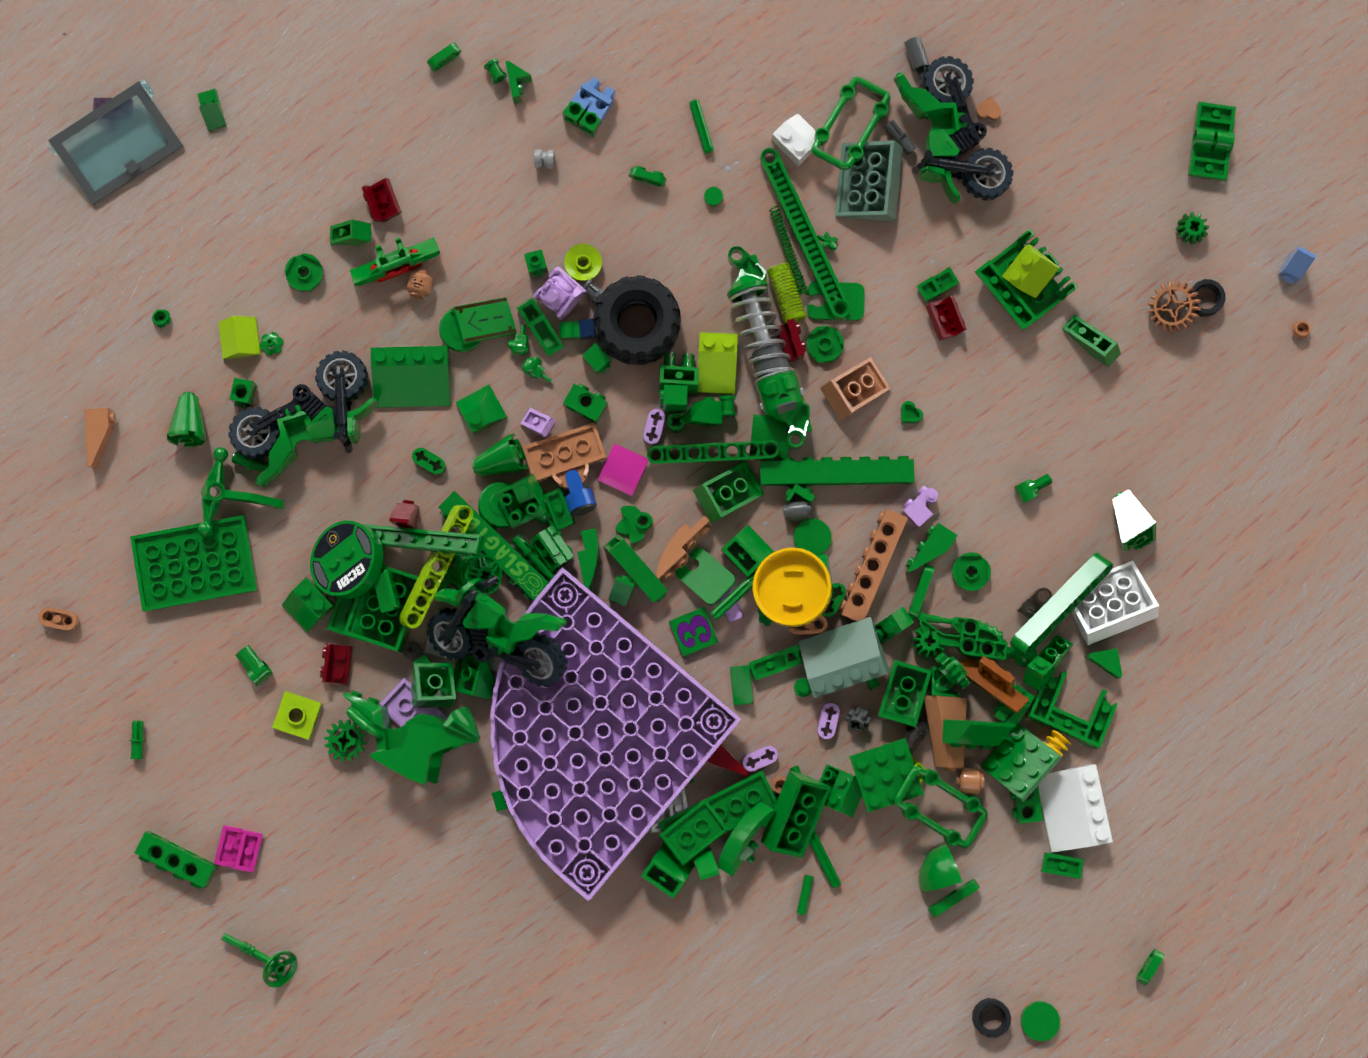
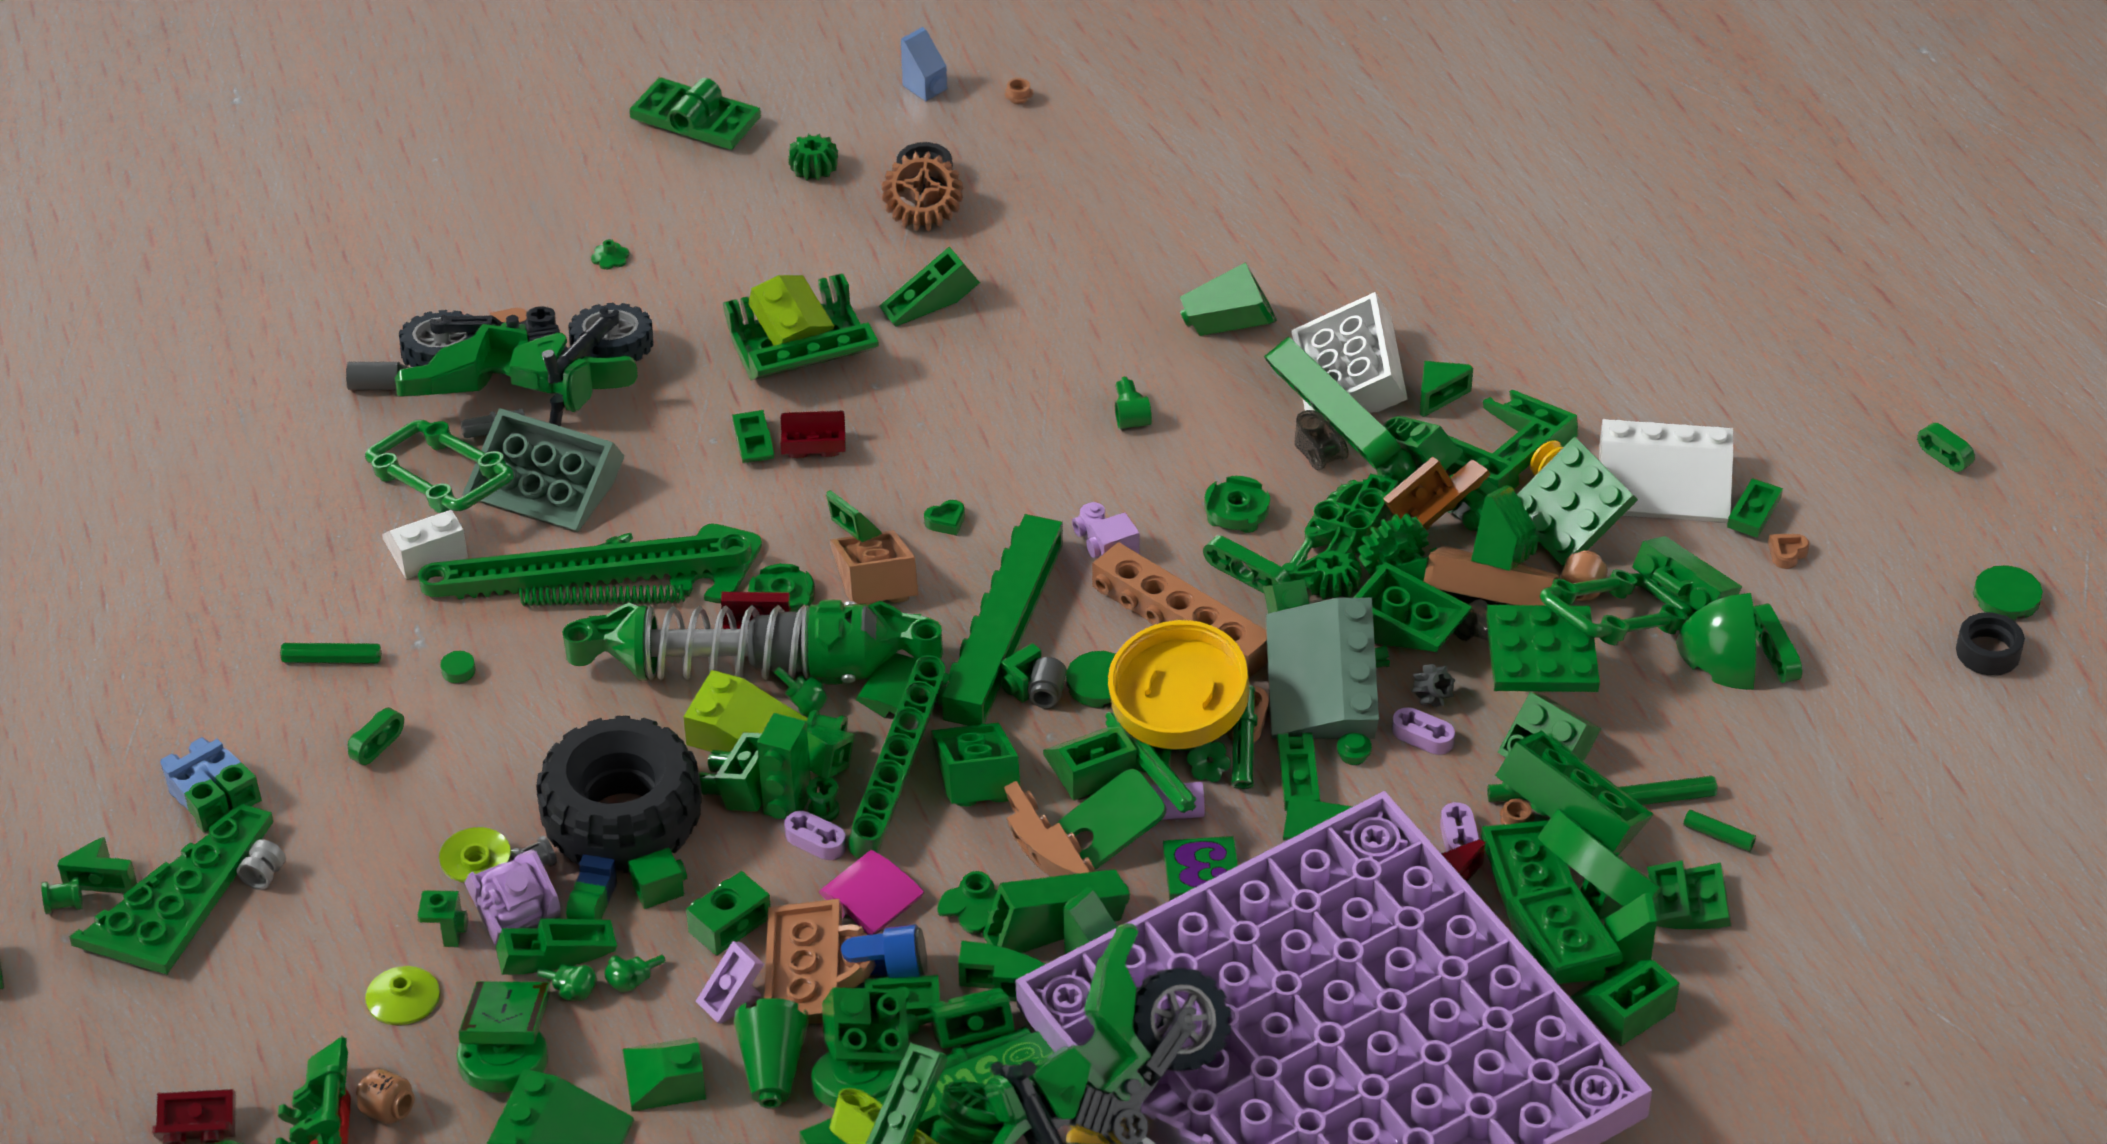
camera: 70 degrees left, 40 degrees down
(493, 272) = (402, 995): none -> lime dish
(507, 125) = (177, 897): none -> green wing
(745, 386) = (804, 693): none -> green piece
(753, 888) = (1690, 896): none -> green slope
(778, 630) = (1244, 746): none -> green pin
(780, 269) = (714, 601): lime piece -> none
(886, 365) = (850, 518): none -> green slope
(936, 544) = (1176, 532): green slope -> none
(985, 838) = (1682, 573): none -> green piece
(1032, 802) = (1643, 521): green brick -> none
(1036, 889) = (1787, 549): none -> nougat tile
(1067, 145) = (609, 255): none -> green plant

